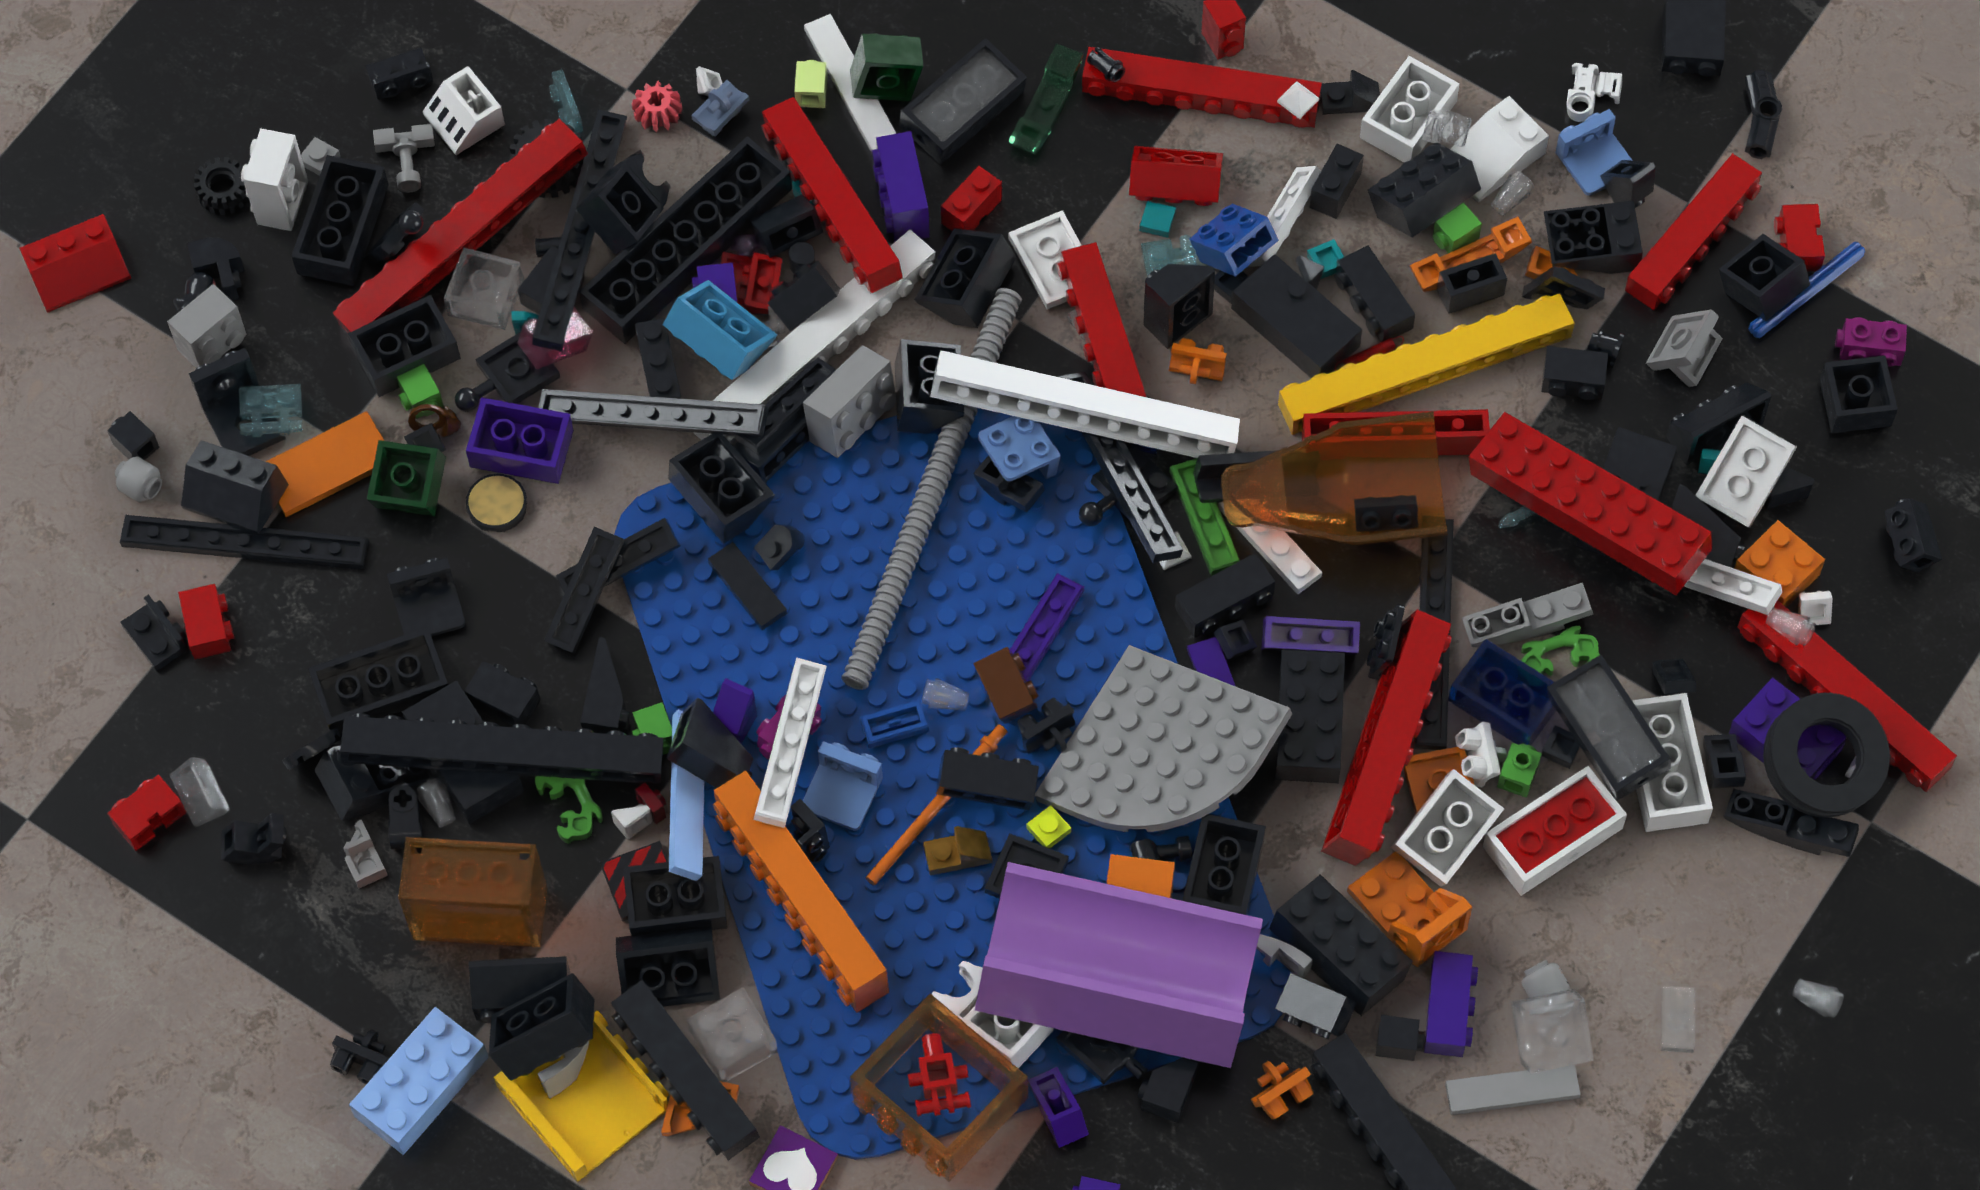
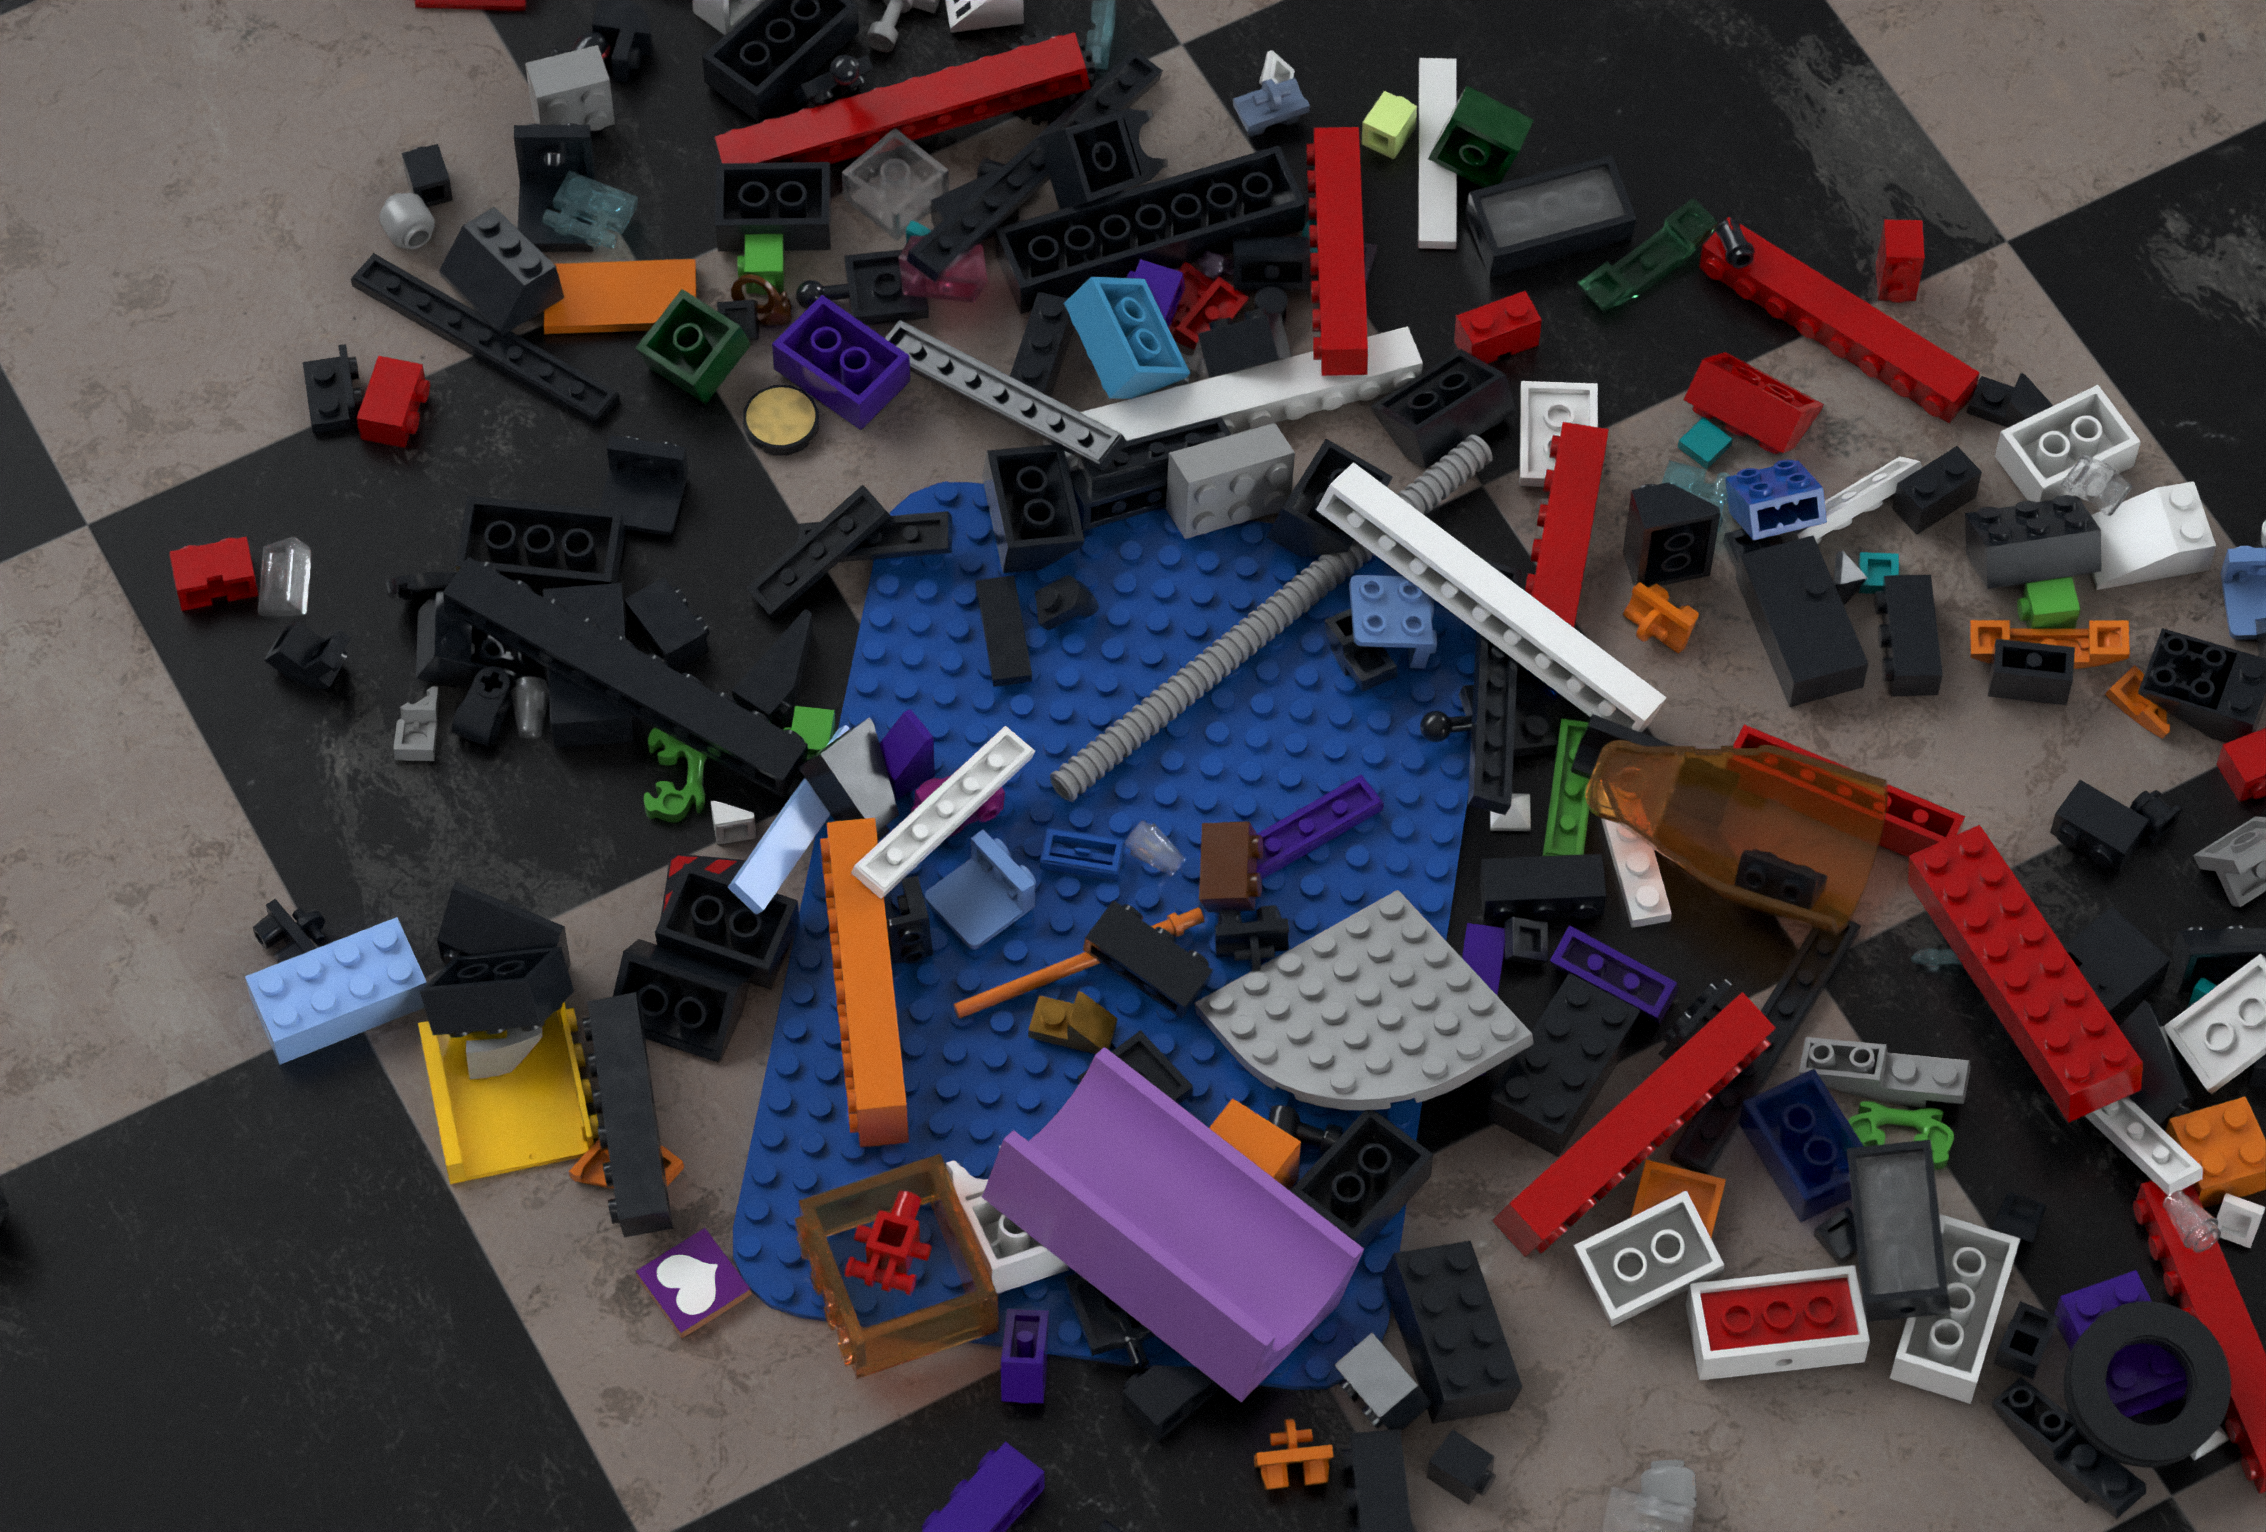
camera: 25 degrees right, 5 degrees down
(473, 892) = (503, 811): clear orange window -> none
(653, 800) = (764, 811): dark red plate -> none
(657, 106) = (1202, 74): coral gear -> none
(732, 1035) = (706, 1105): clear brick -> none
(900, 185) = (1424, 274): dark purple brick -> none
(1048, 827) = (1191, 1047): neon yellow plate -> none
(1287, 954) = (1372, 1300): light grey slope -> none
(1298, 100) = (1939, 379): white slope -> none
(1382, 347) = (1867, 700): red piece -> none
(1409, 909) = (1557, 1331): orange bracket -> none
(1429, 361) = (1937, 737): yellow brick -> none
(1450, 1004) = (1543, 1459): dark purple brick -> none
(1483, 755) = (1744, 1200): white hips -> none
(1513, 192) = (2140, 595): clear cone -> none
(1519, 769) = (1777, 1237): bright green brick -> none
(1574, 290) = (2141, 727): black wing -> none

